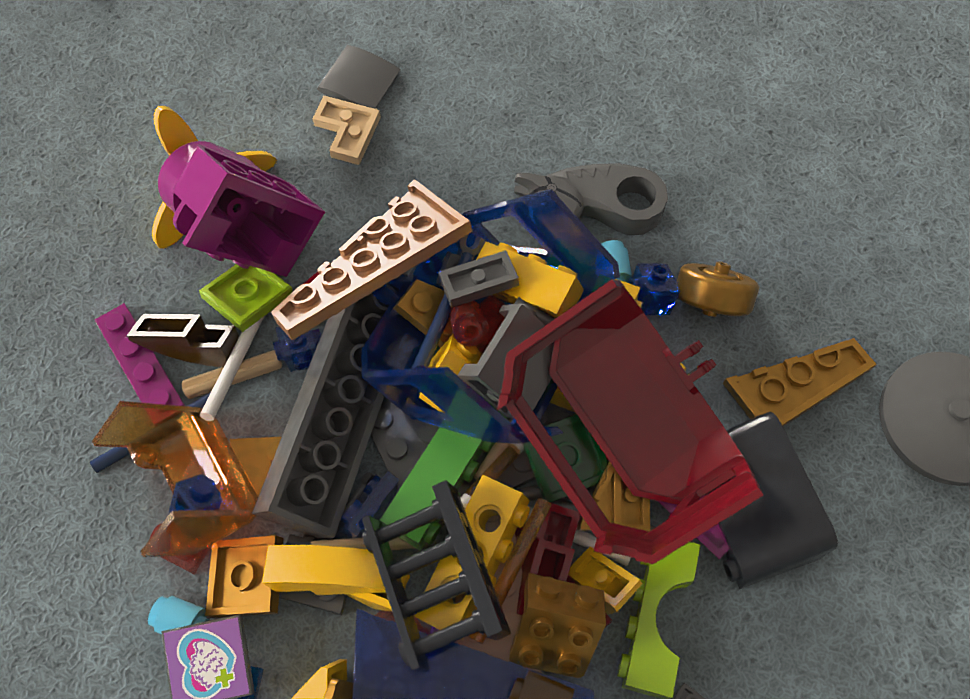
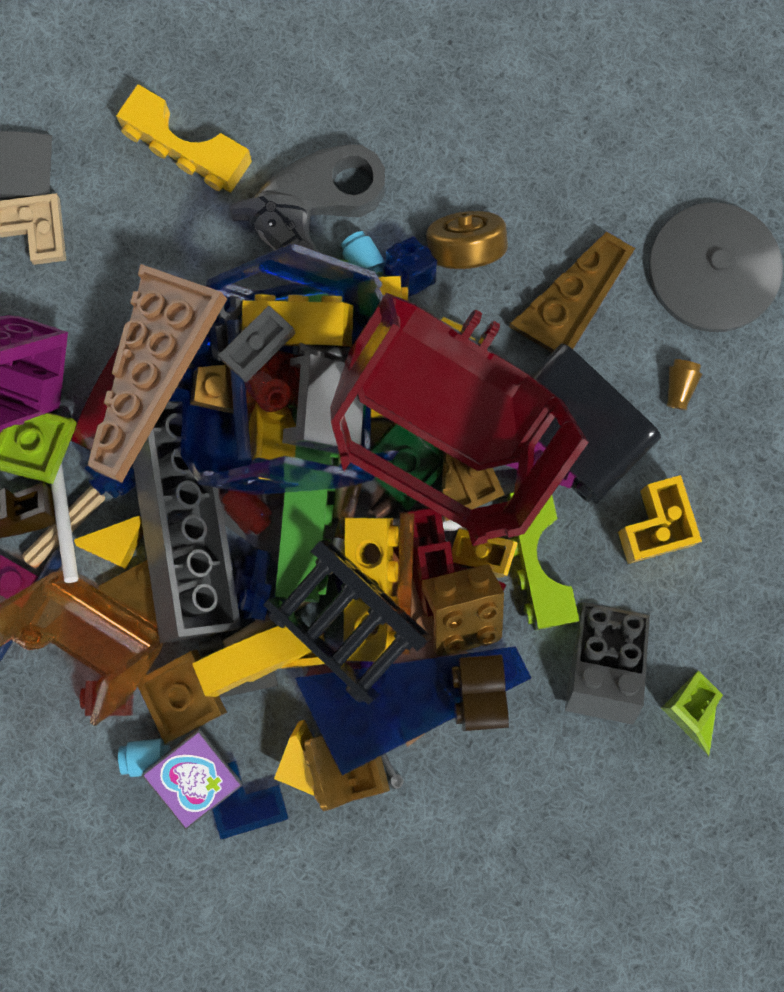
camera: 30 degrees left, 15 degrees up
(195, 494) = (105, 650): clear blue brick -> none
(265, 406) = (114, 542): none -> yellow slope
(396, 432) = (247, 511): none -> clear red brick
(525, 139) = (218, 159): none -> yellow arch
(809, 643) = (669, 524): none -> yellow brick
(877, 509) = (682, 383): none -> pearl gold cone

